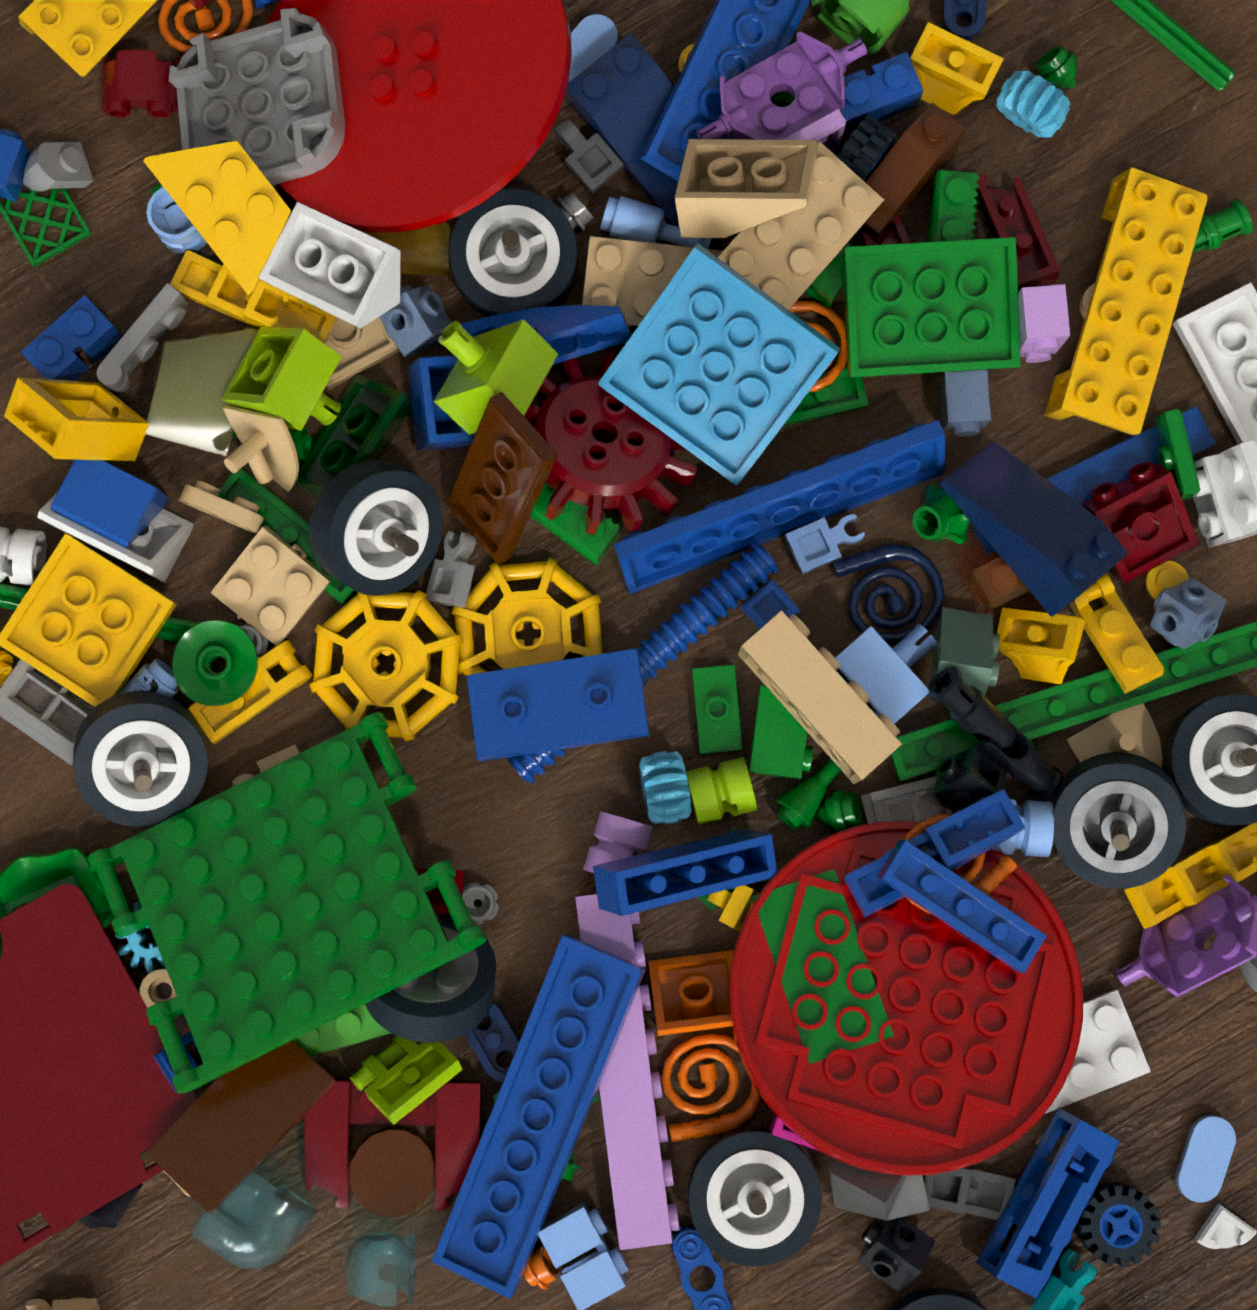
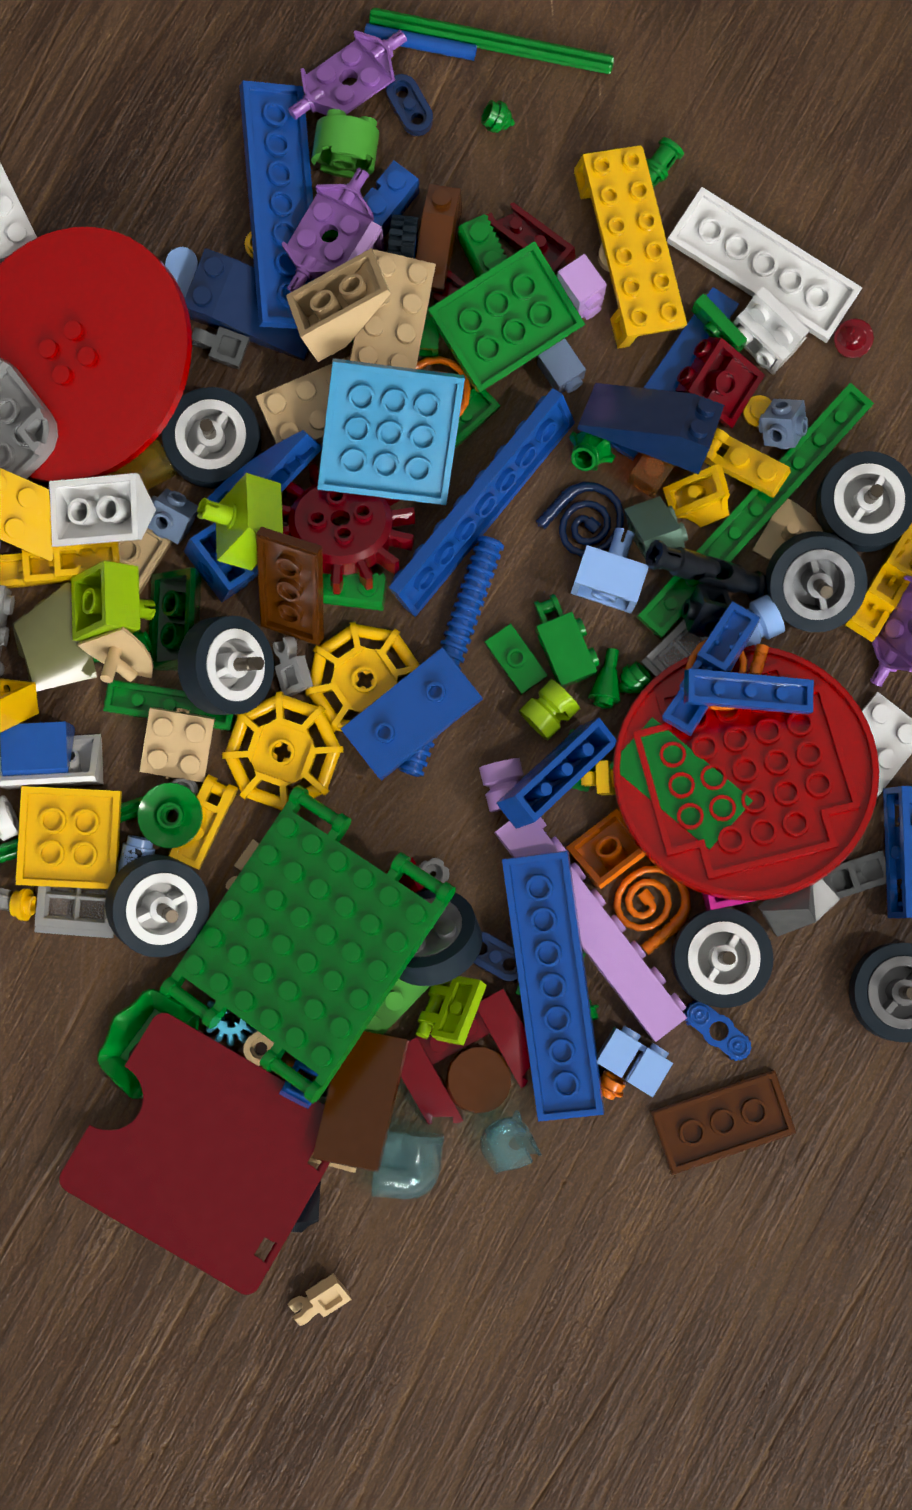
camera: 35 degrees left, 0 degrees up
(206, 499) = (129, 708): tan plate -> none
(575, 211) = (234, 385): light grey plate -> none
(643, 223) = (284, 368): light blue piece -> none
(665, 787) = (512, 727): medium azure gear -> none
(767, 604) = (512, 574): blue tile -> none
(818, 544) = (520, 514): light blue plate -> none
(819, 697) = (579, 609): tan brick -> none
(895, 1251) = (832, 940): black brick -> none
(952, 69) = (429, 155): yellow slope -> none
(1033, 104) = (495, 148): medium azure gear -> none

